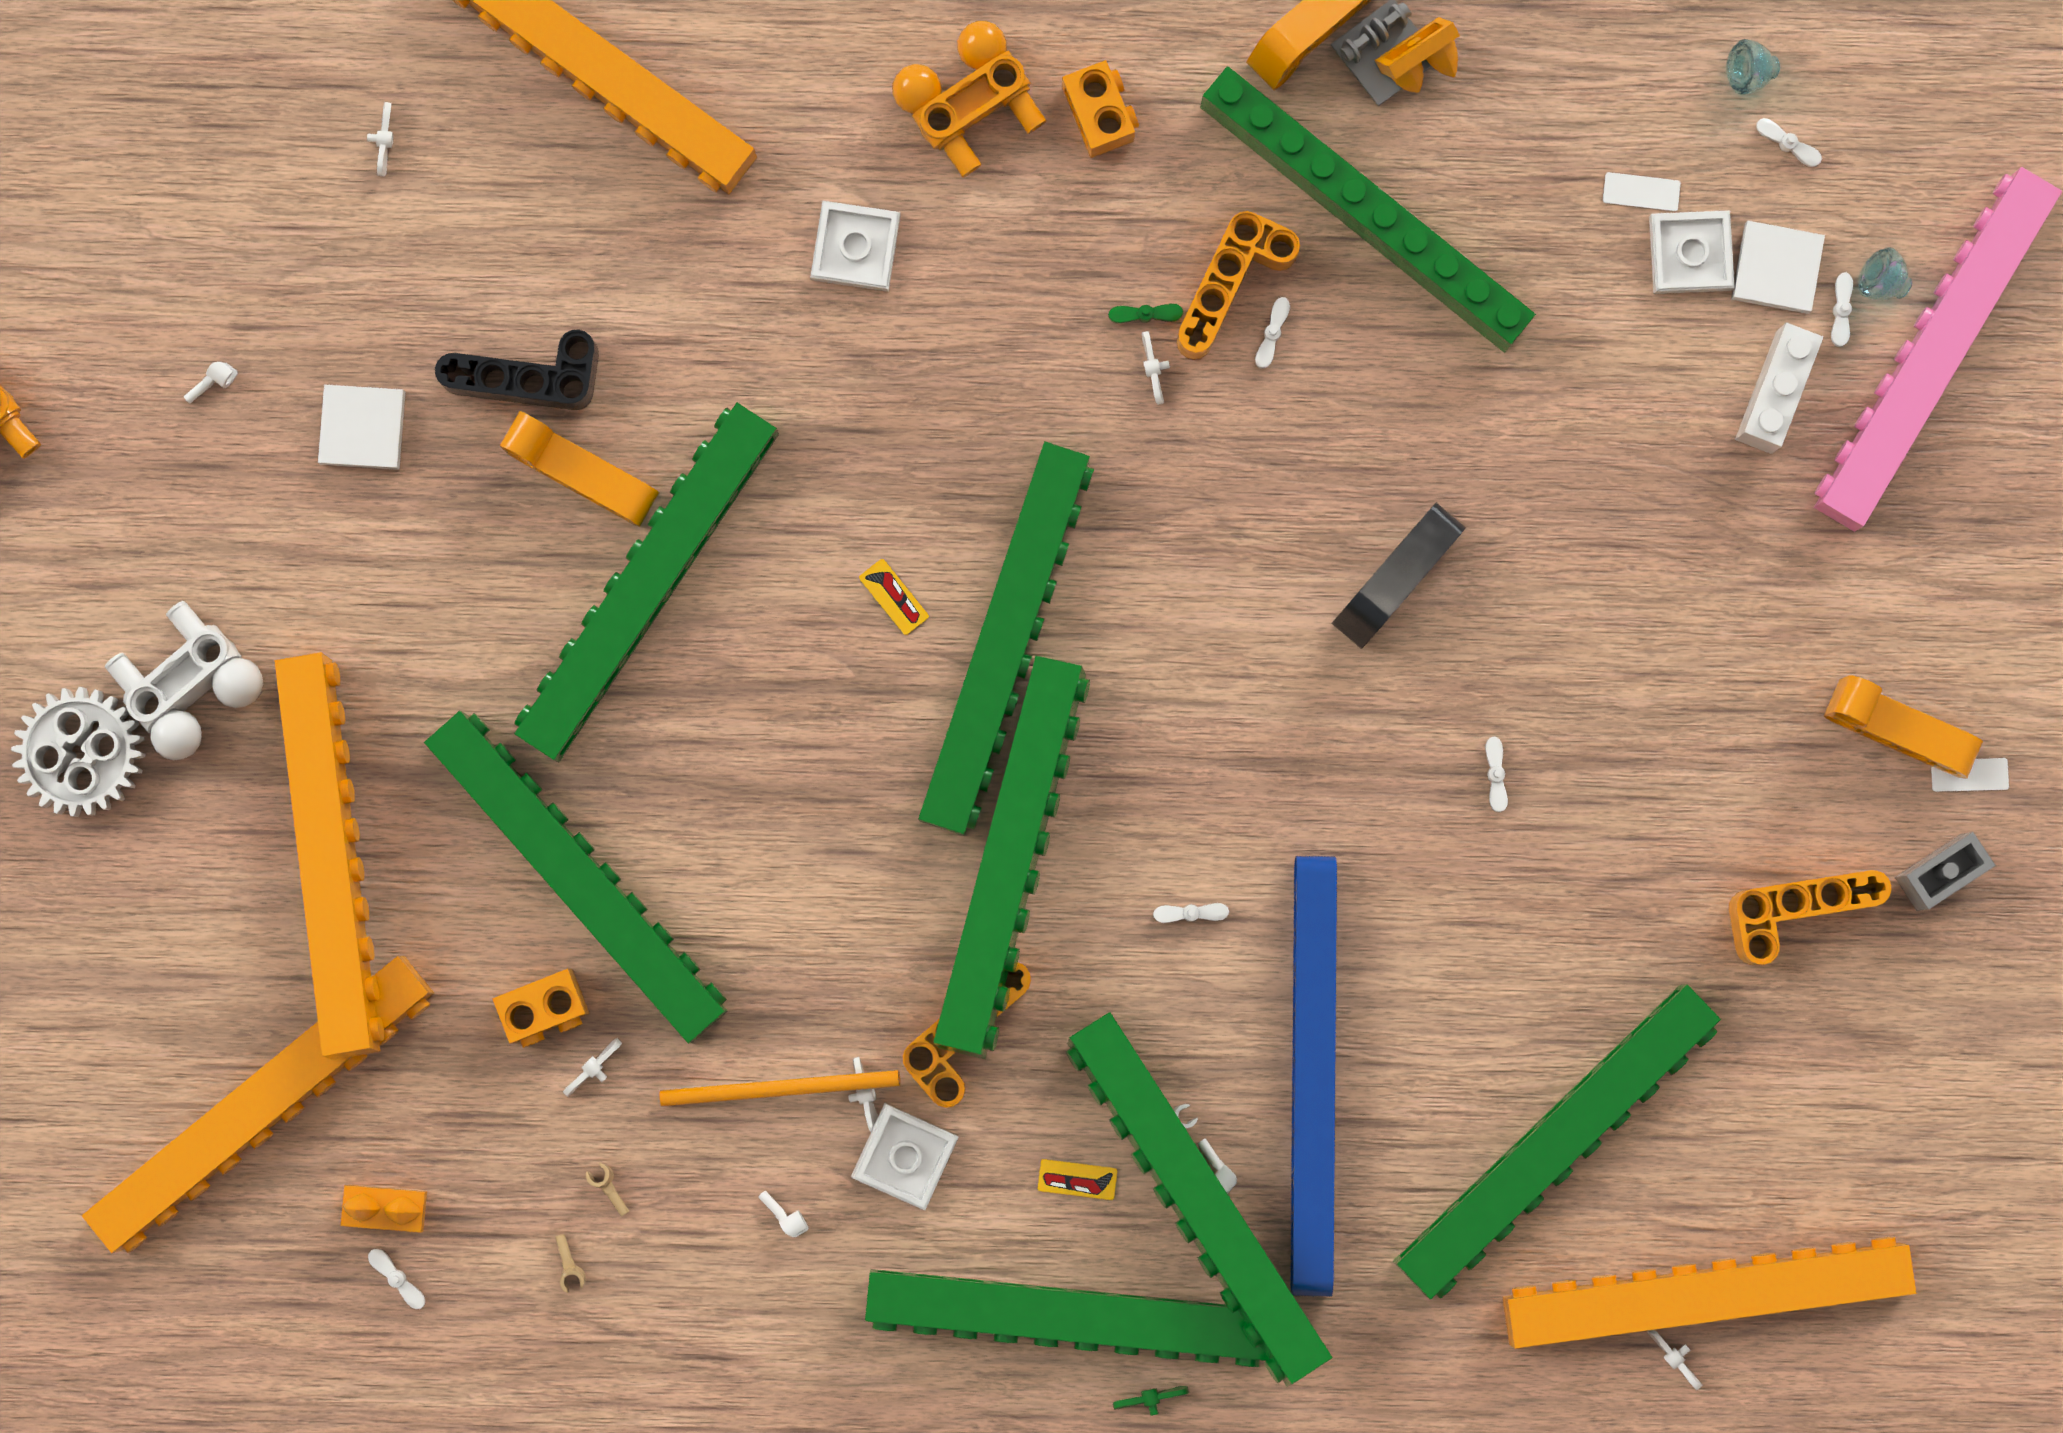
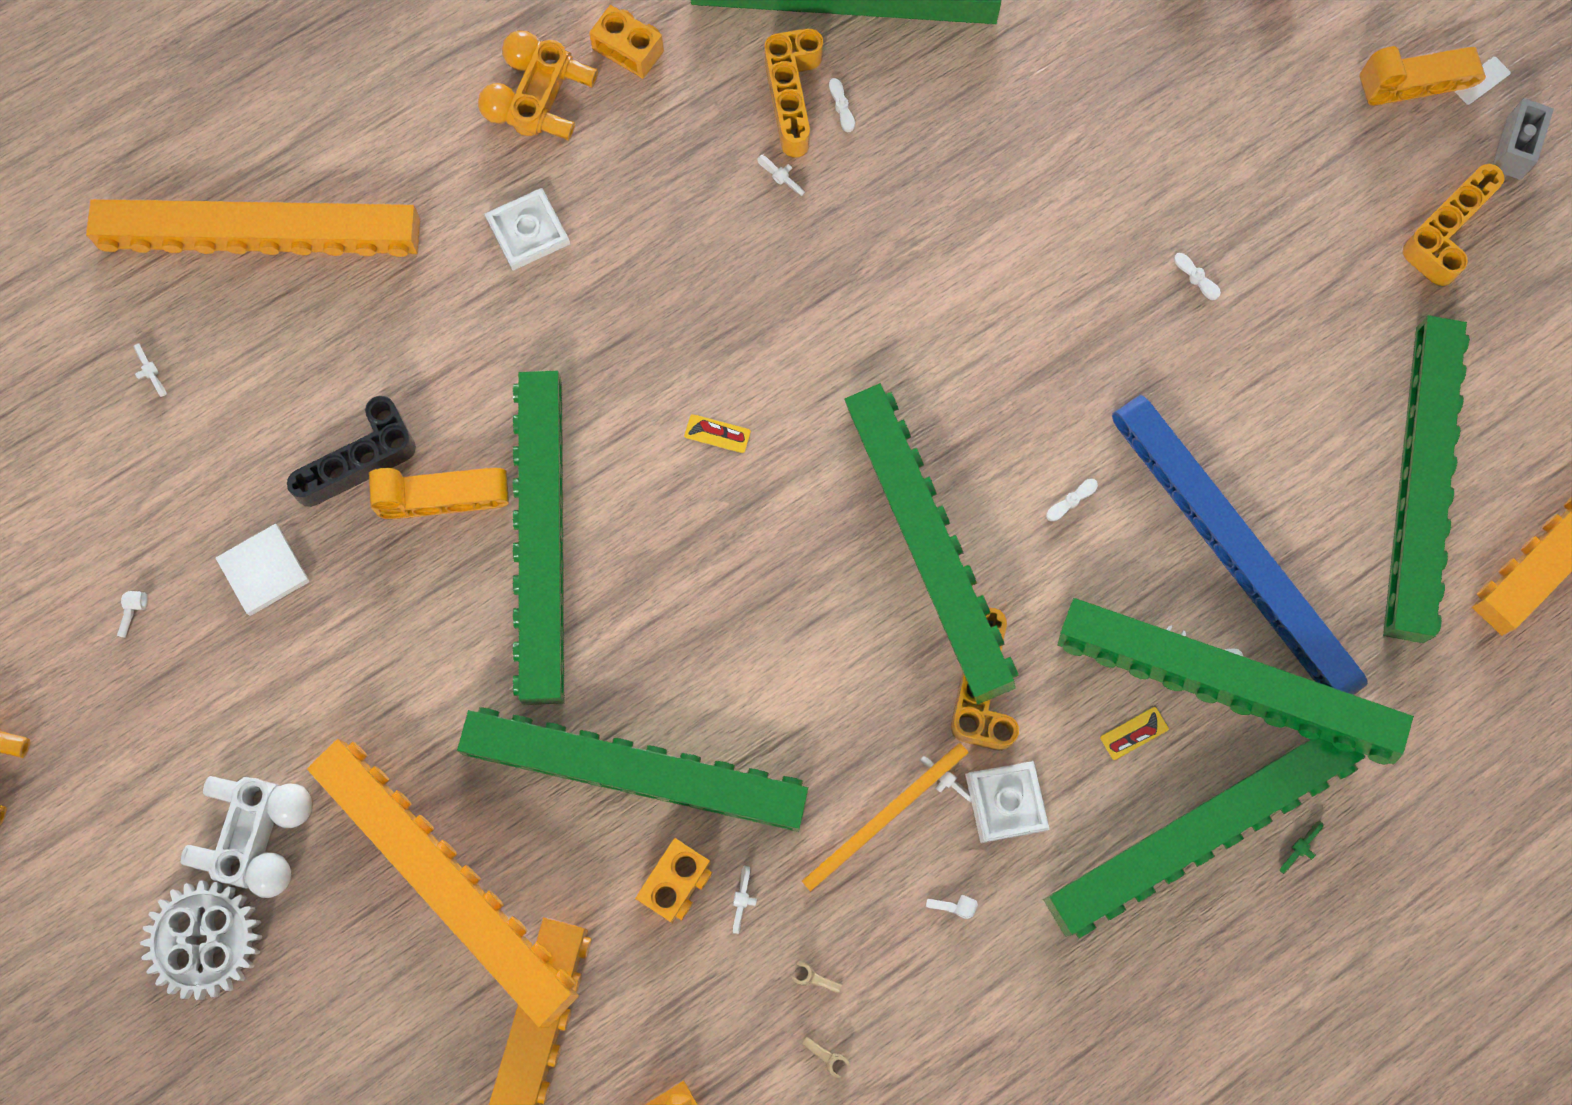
camera: 35 degrees left, 10 degrees down
(1004, 639) = (815, 410): green brick -> none
(1146, 313) = (751, 145): green piece -> none
(1398, 575) = (1040, 195): black beam -> none

